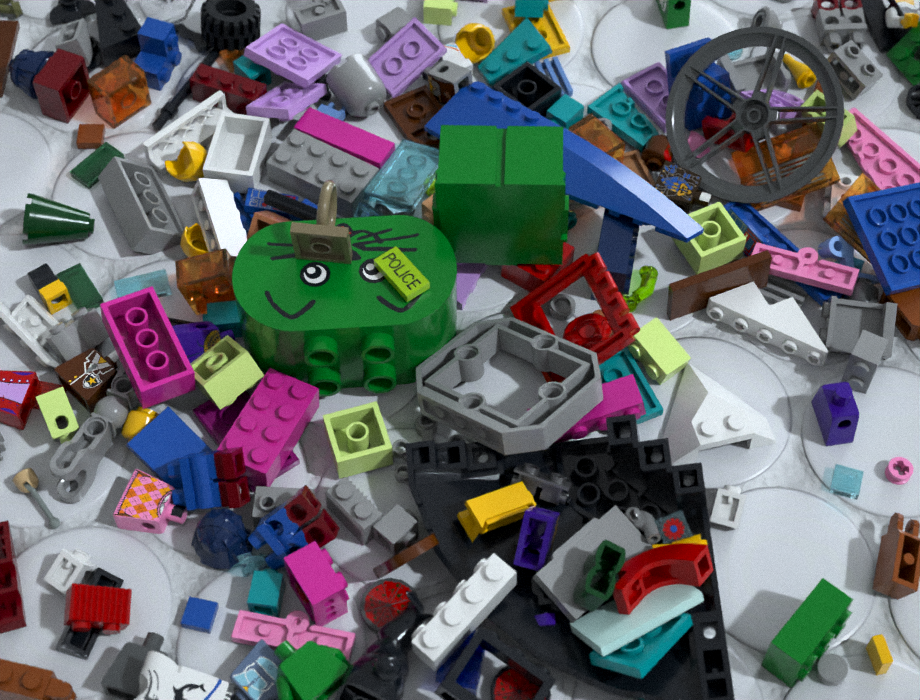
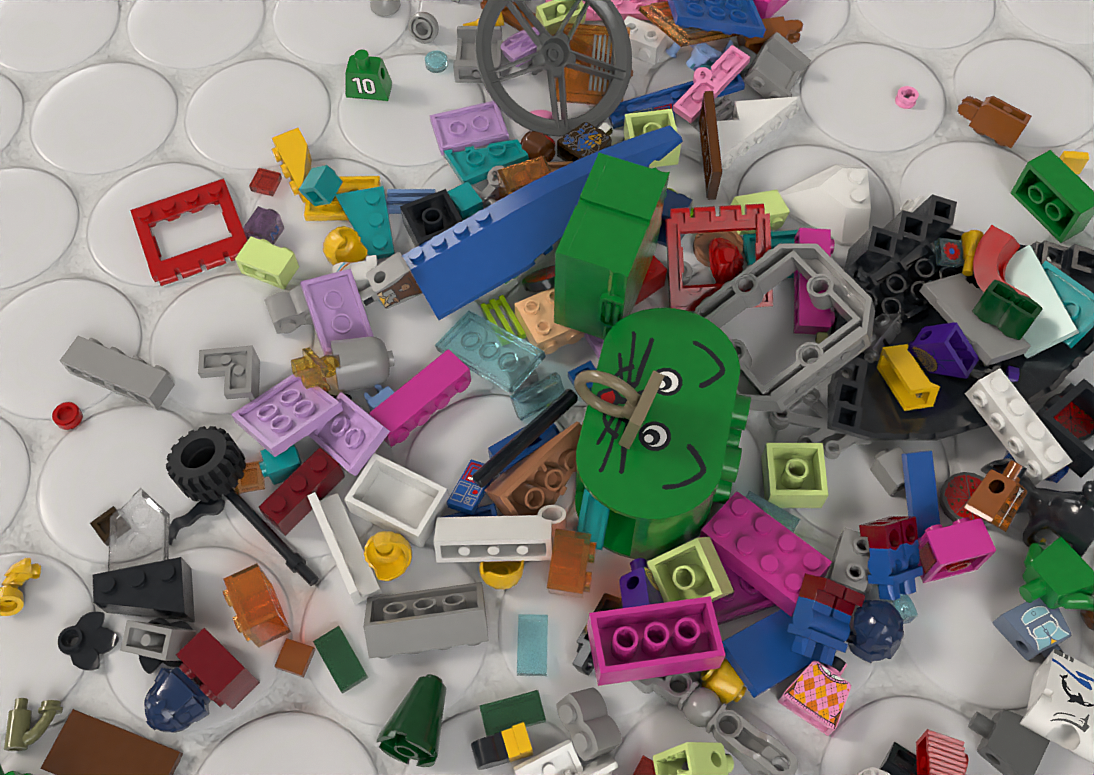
camera: 70 degrees left, 5 degrees up
(88, 376) = (643, 722): reddish brown torso -> none
(158, 52) = (212, 549): blue brick -> none
(199, 614) = (949, 673): blue tile -> none
(224, 316) = (608, 567): teal brick -> none
(266, 592) = (942, 602): teal brick -> none
(296, 629) = (989, 591): bright pink hinge -> none
(306, 163) = (455, 427): light grey brick -> none
(314, 433) = (782, 516): none -> clear light blue tile
(336, 56) = (314, 369): none -> clear yellow hips
(353, 509) = (868, 499): light grey brick -> none
(371, 600) = (999, 496): none -> dark orange torso
(373, 549) = (921, 489): none -> blue tile
(401, 274) = (683, 356): lime tile -> none
(406, 556) = (950, 463): reddish brown tile -> none
(412, 112) = (409, 325): reddish brown tile -> none
(644, 522) = (939, 270): light grey arm -> none
(699, 102) = (470, 91): blue bracket -> none
(713, 125) = (535, 92): red panel -> none
(834, 406) = (851, 112): dark purple torso -> none
(846, 481) = (908, 133): clear light blue tile -> none
(864, 361) = (813, 77): light grey brick -> none

